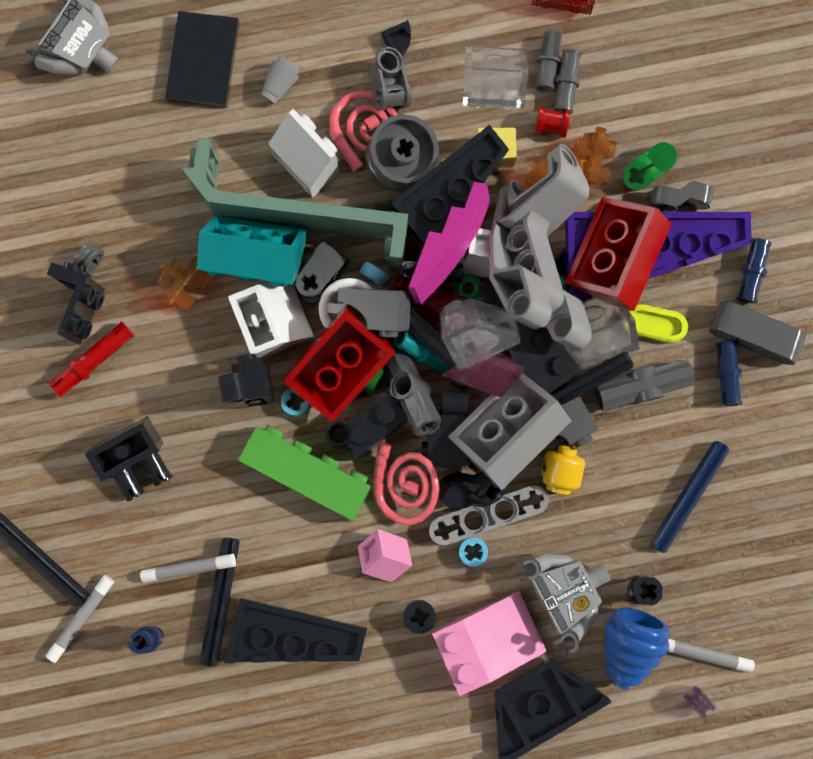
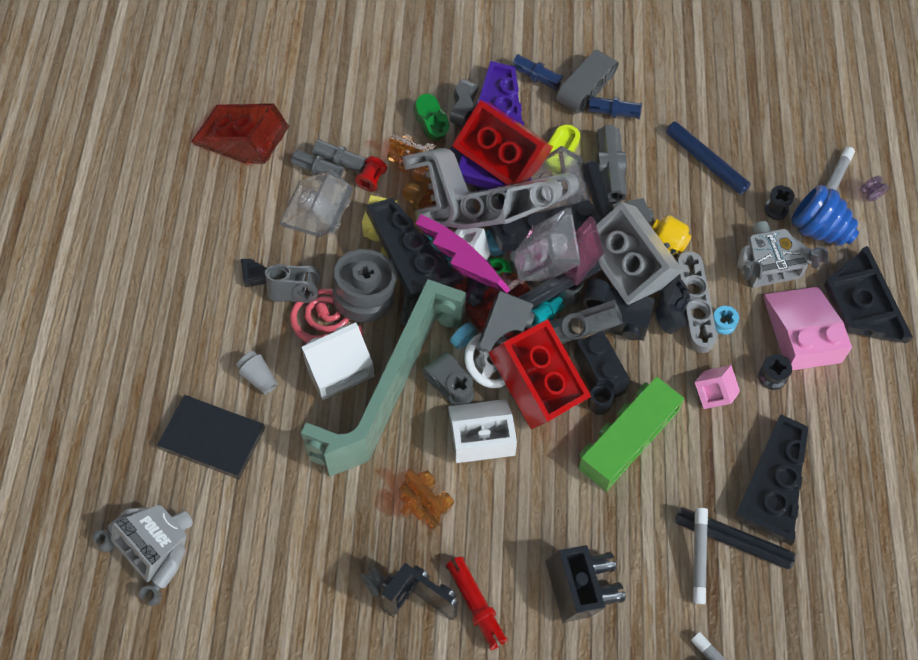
camera: 75 degrees left, 20 degrees down
(146, 639) = (765, 601): dark blue pin -> none
(248, 383) = (539, 451): black hinge -> none
(251, 250) = (416, 422): teal brick -> none
(286, 397) = (568, 424): medium azure bush -> none
(409, 487) = (662, 348): coral piece -> none

